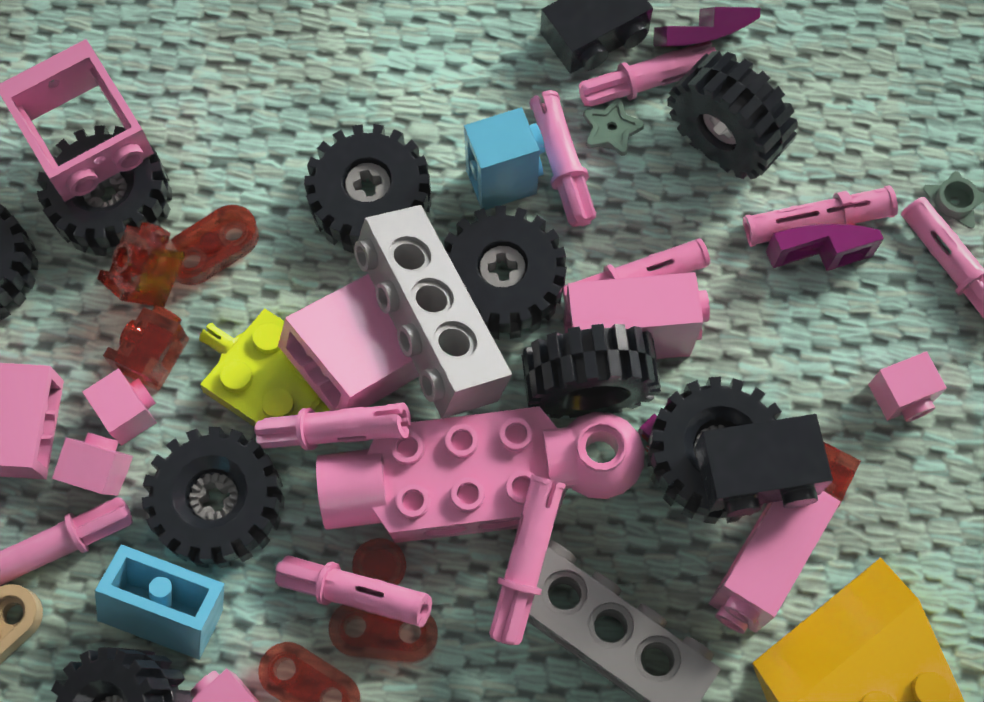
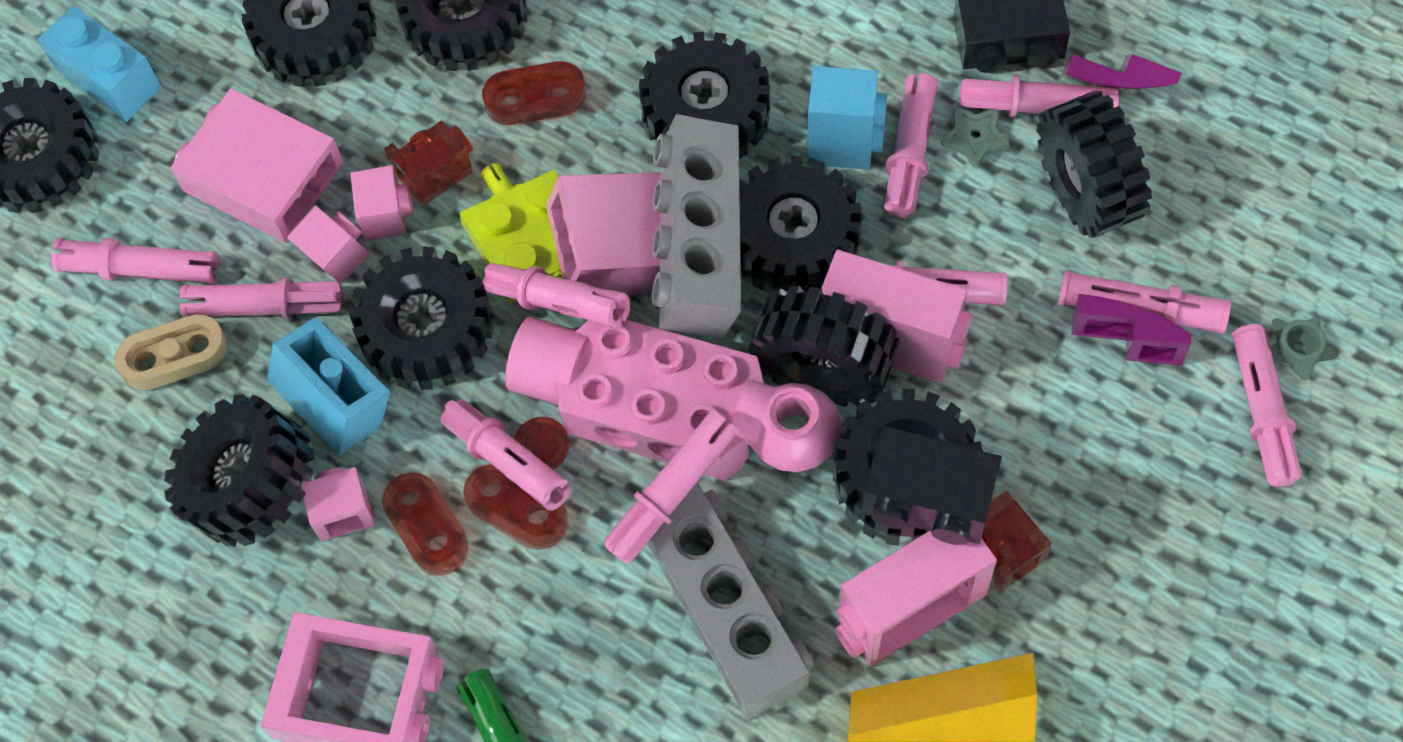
camera: 30 degrees right, 5 degrees down
(144, 266) = (460, 84): clear red brick -> none
(908, 388) = (1144, 501): bright pink plate -> none

